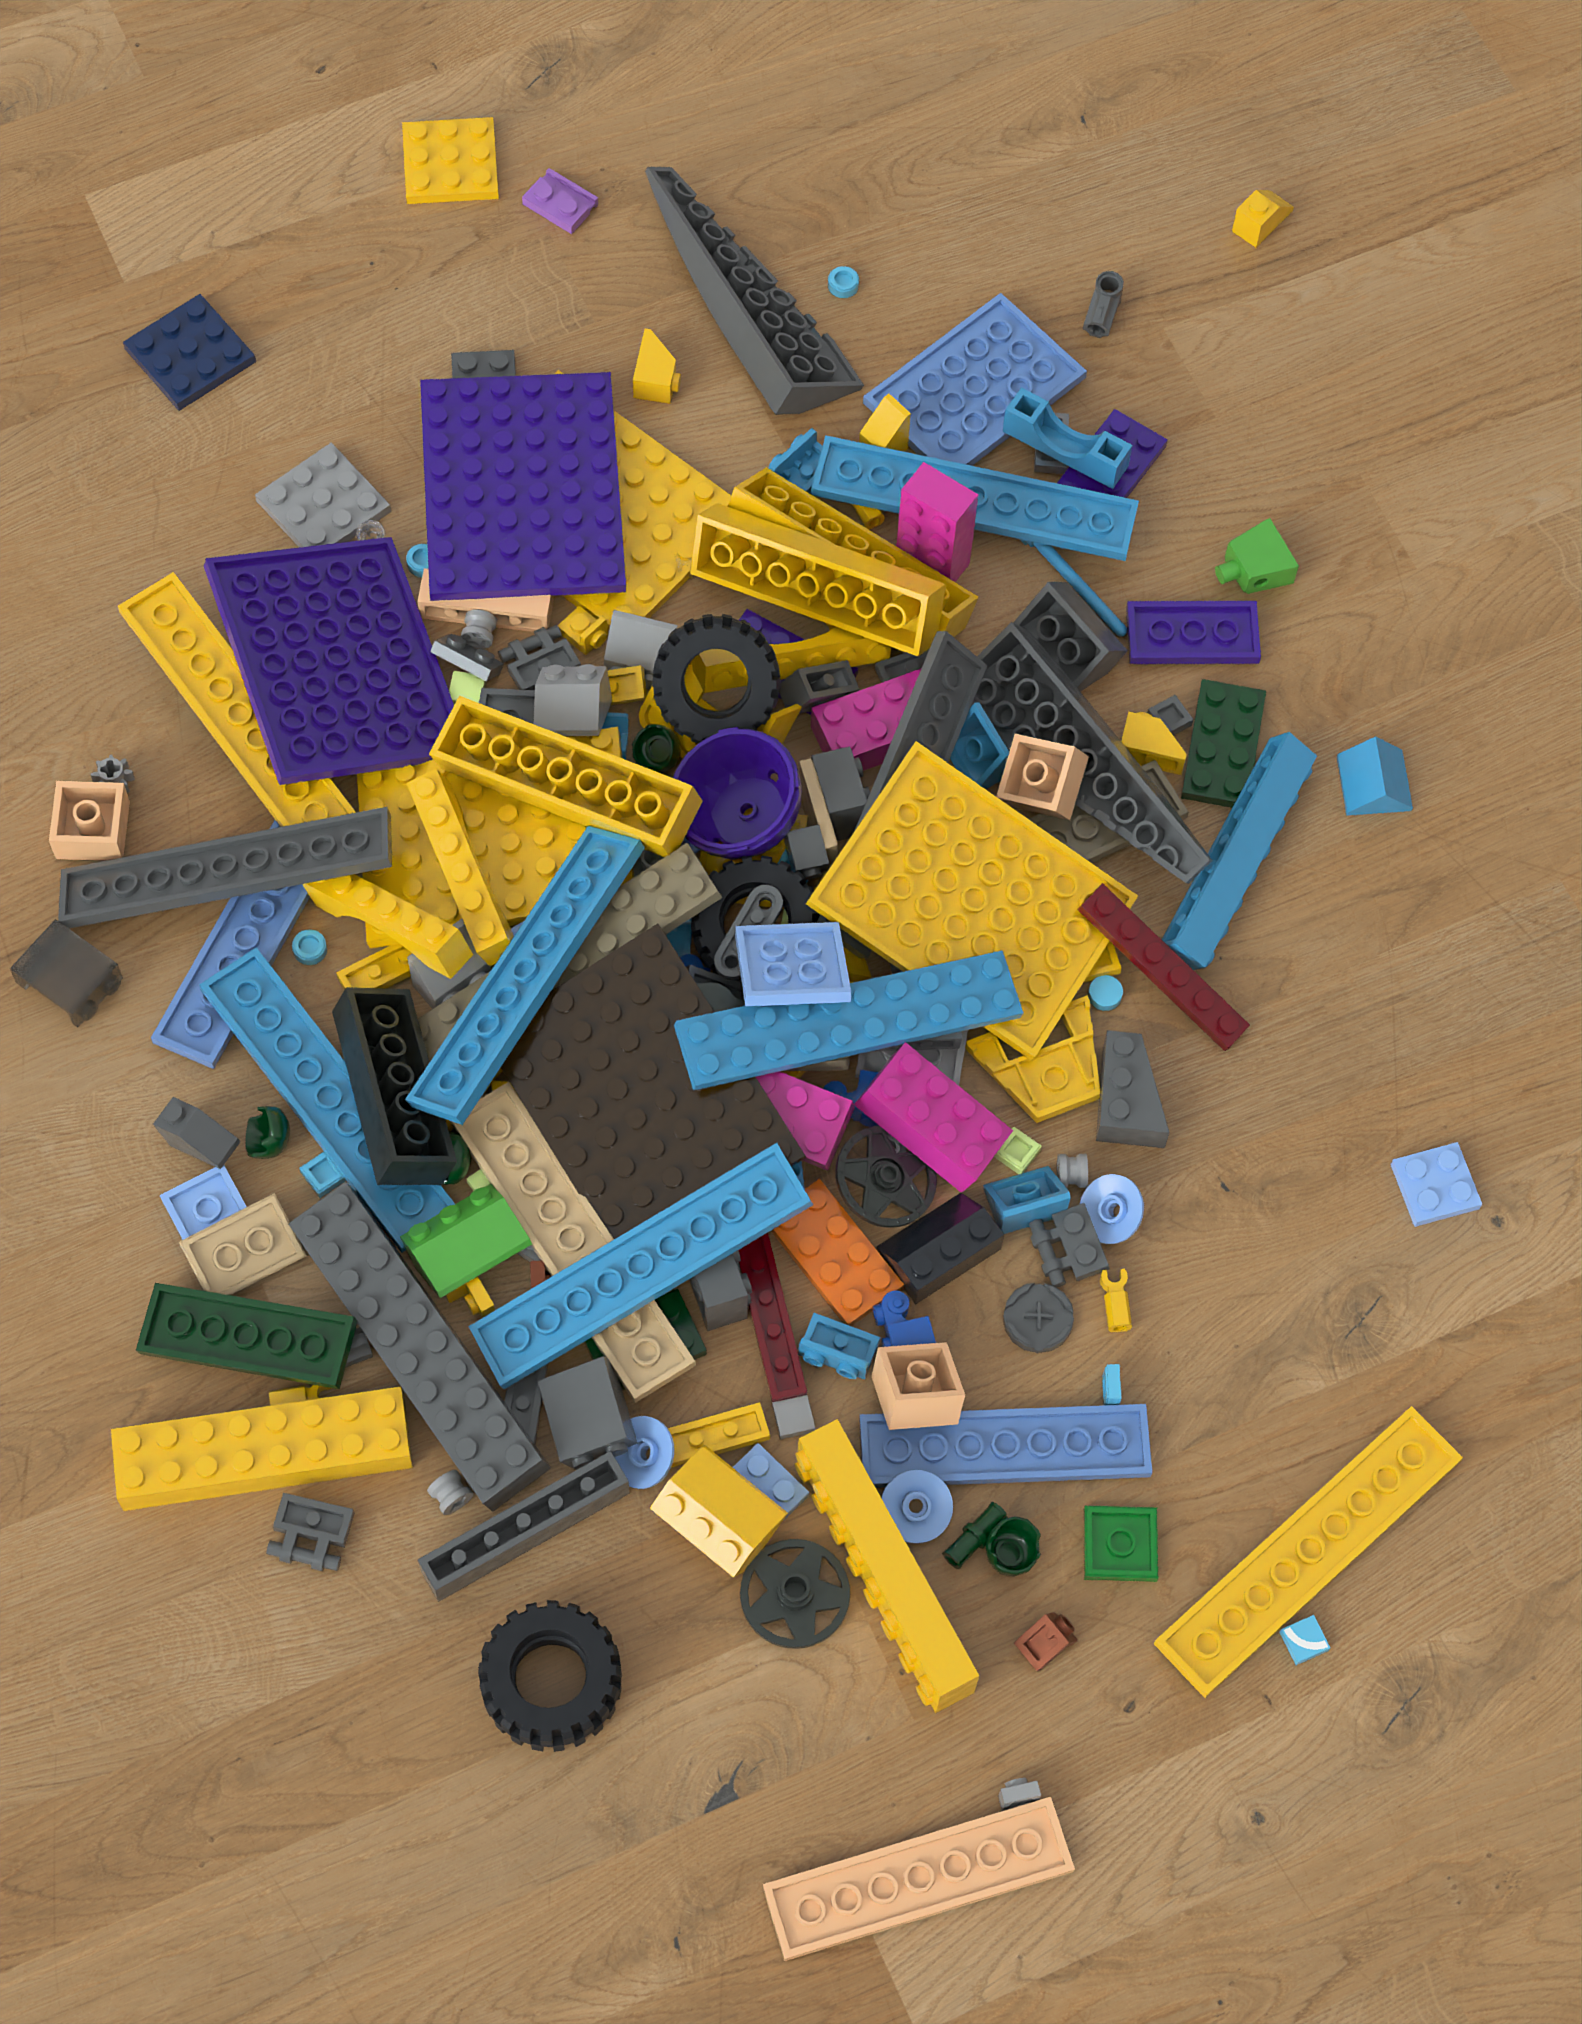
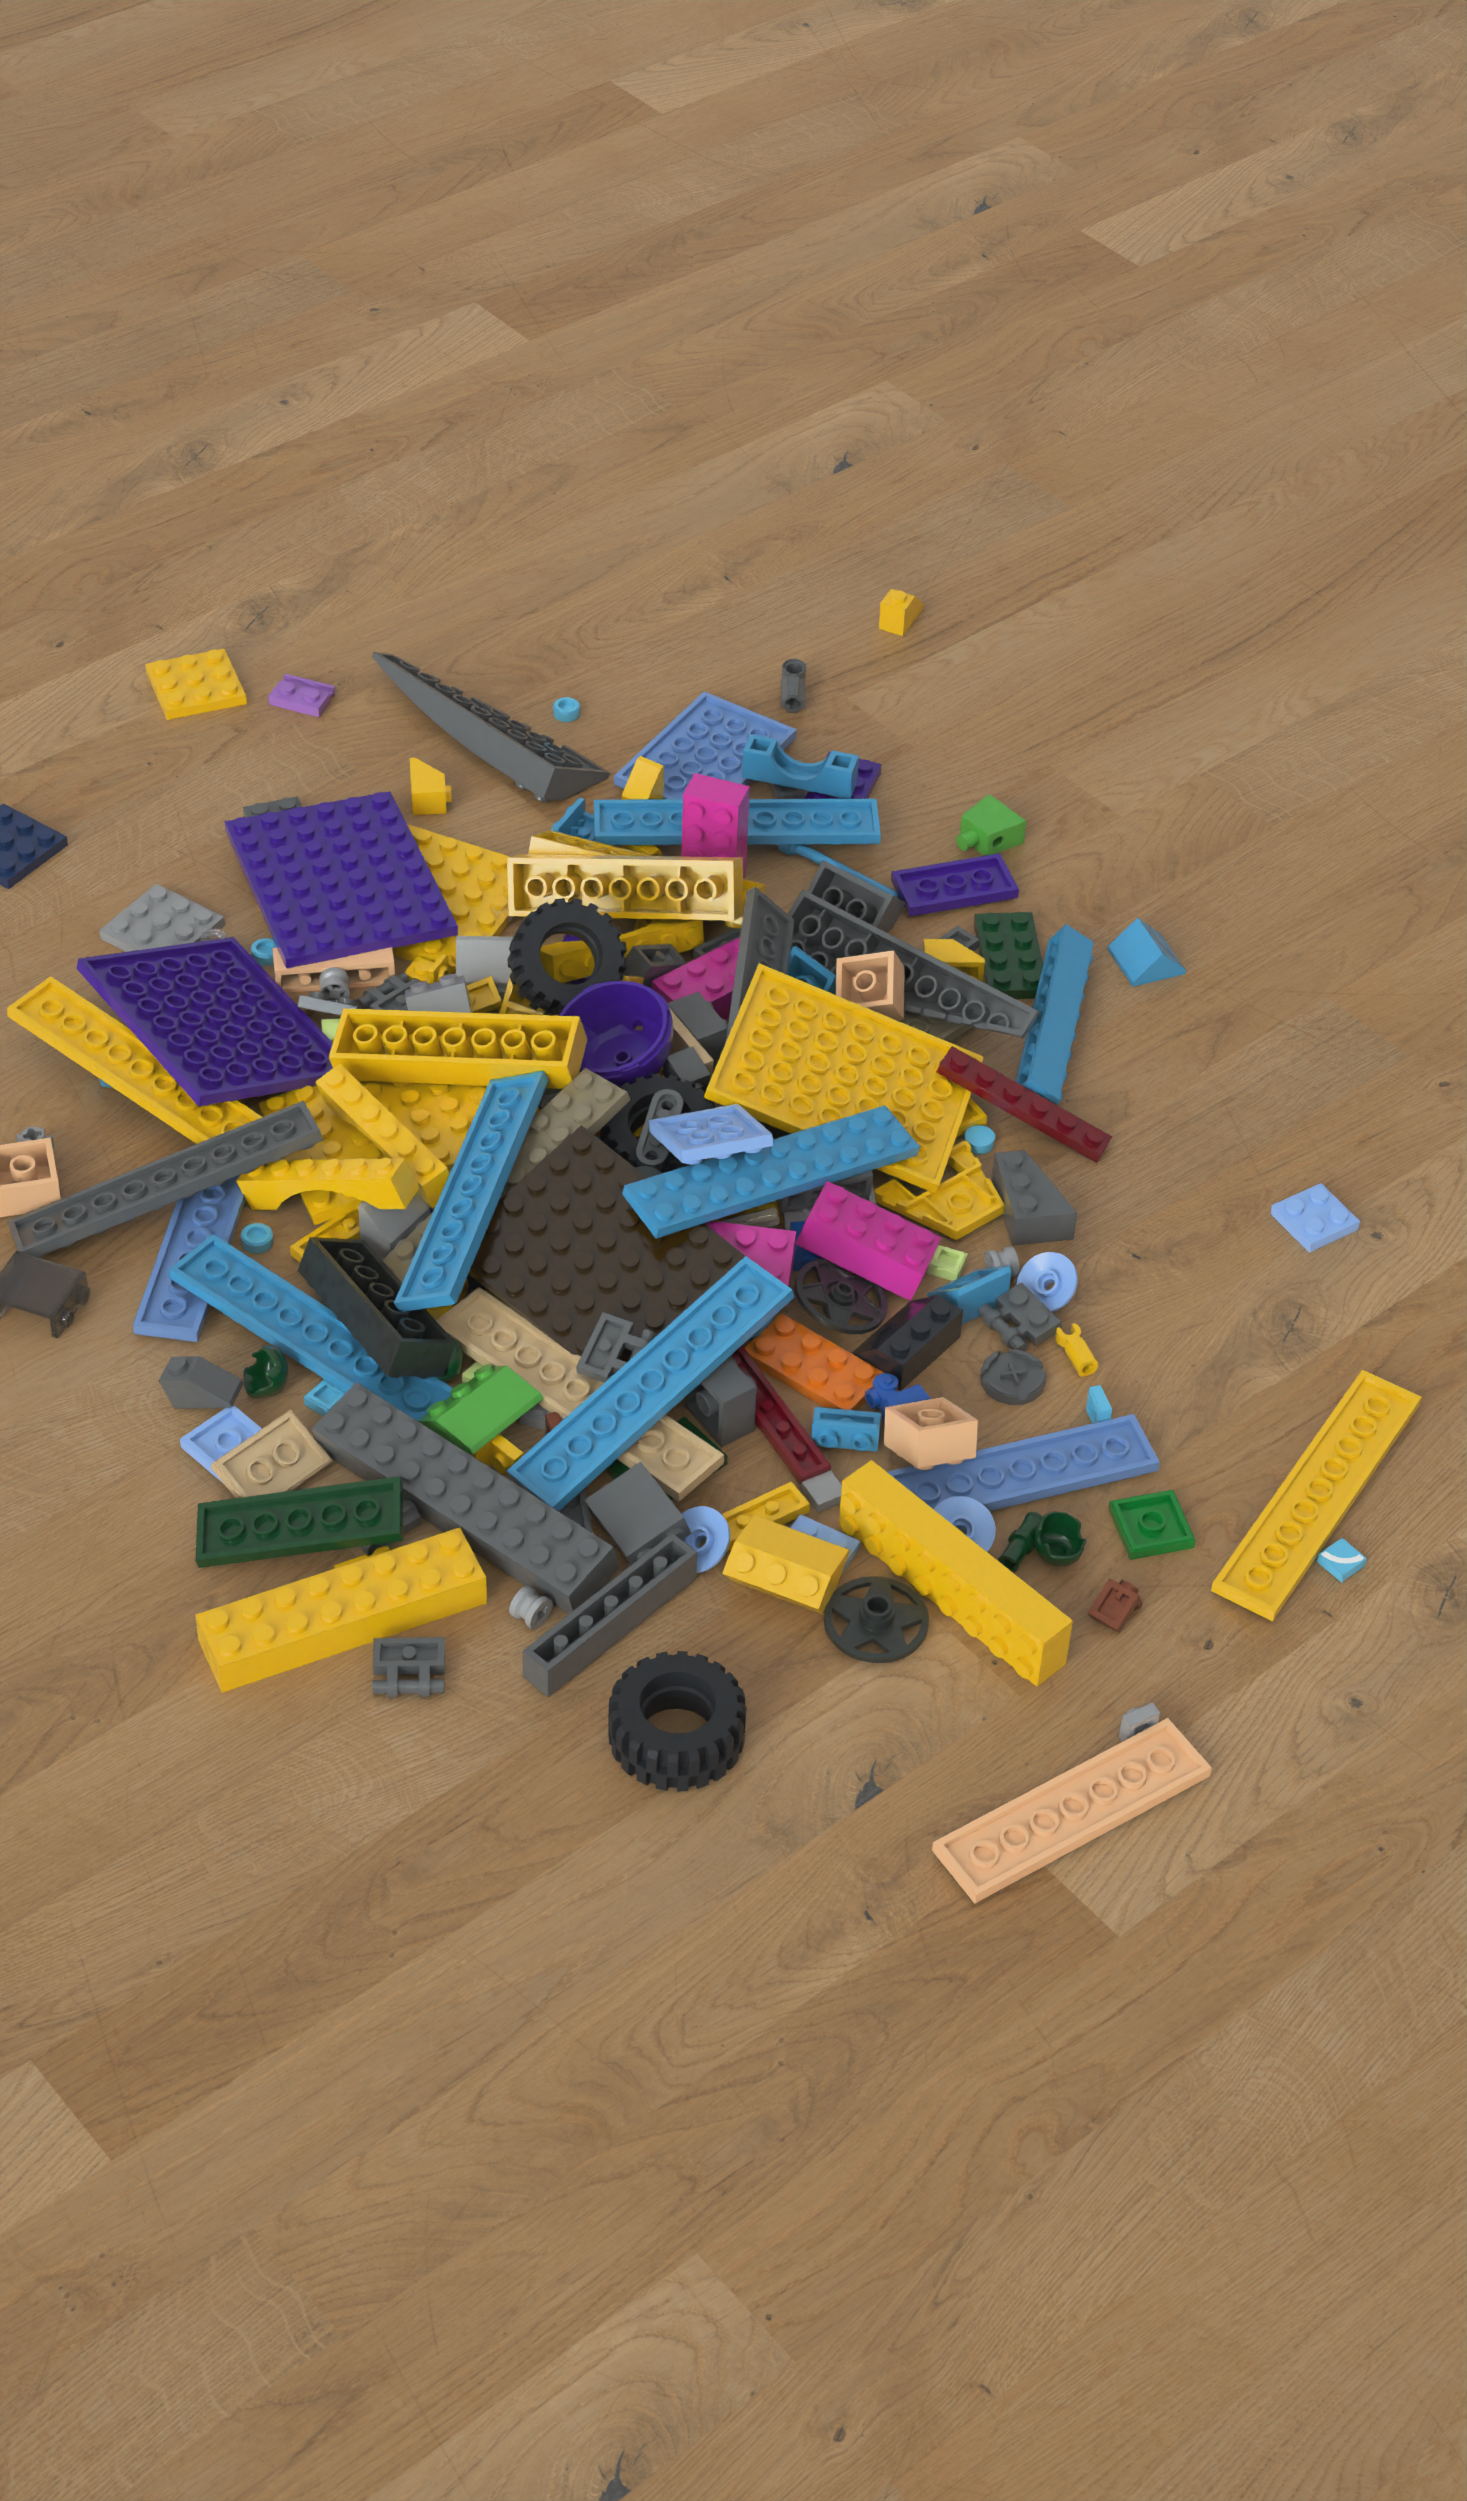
camera: 15 degrees left, 20 degrees down
(611, 1201) = (607, 1345): none -> dark grey plate

